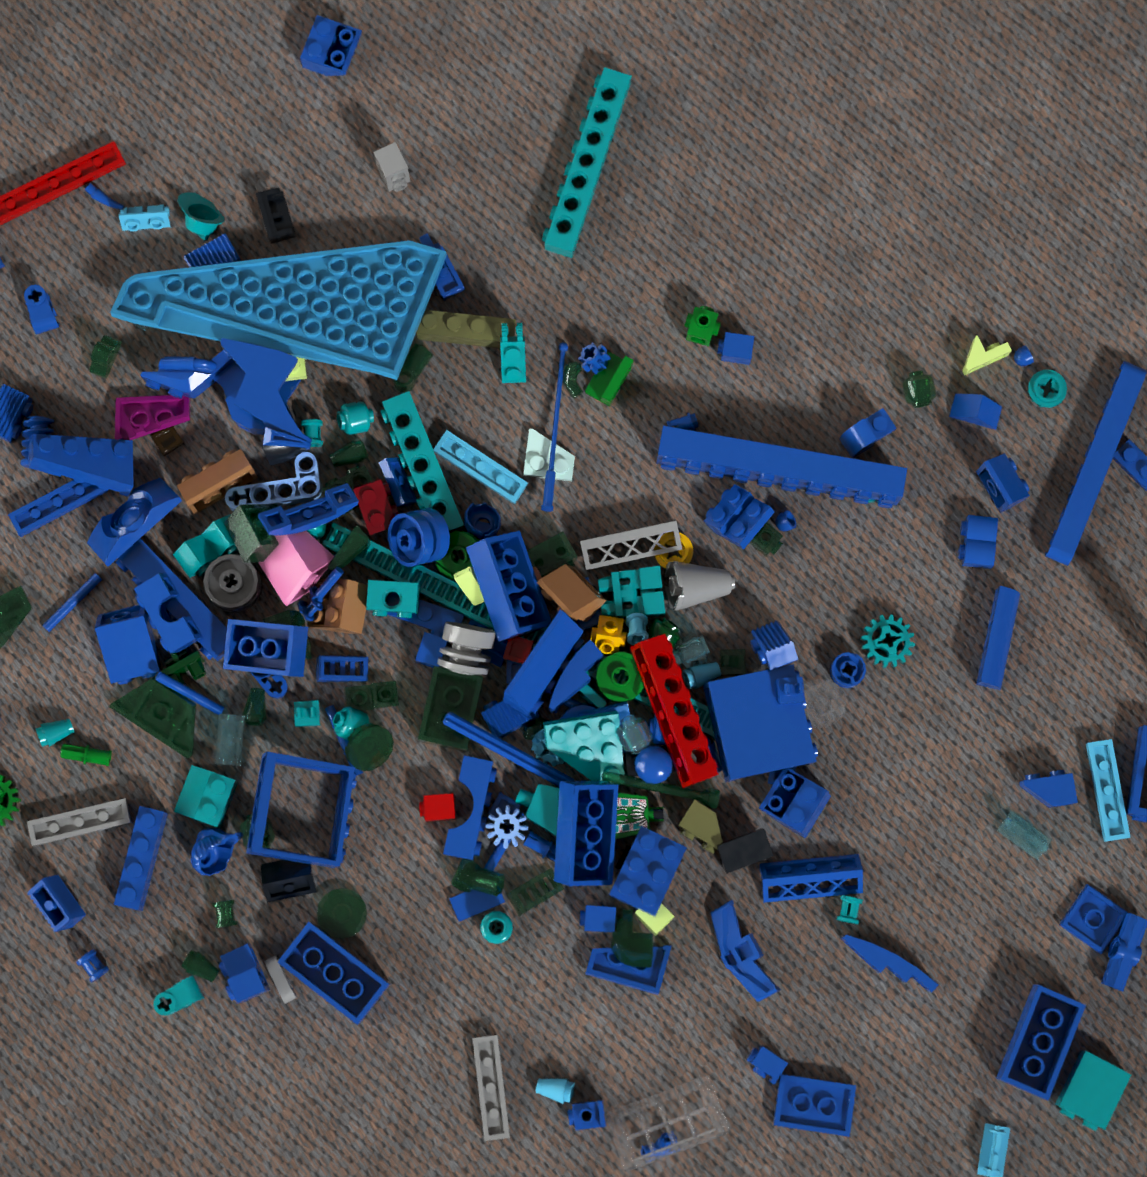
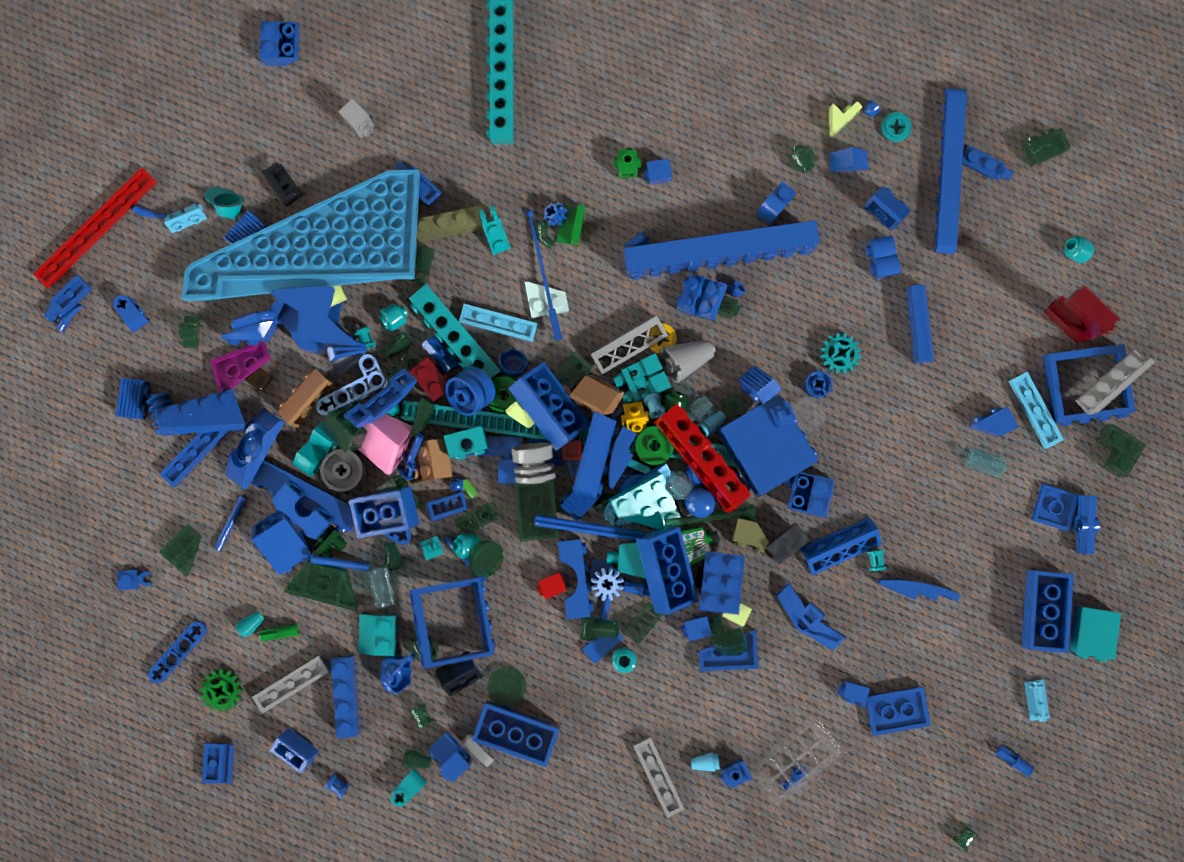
camera: 15 degrees left, 5 degrees up
(372, 650) = (463, 485): none -> arm

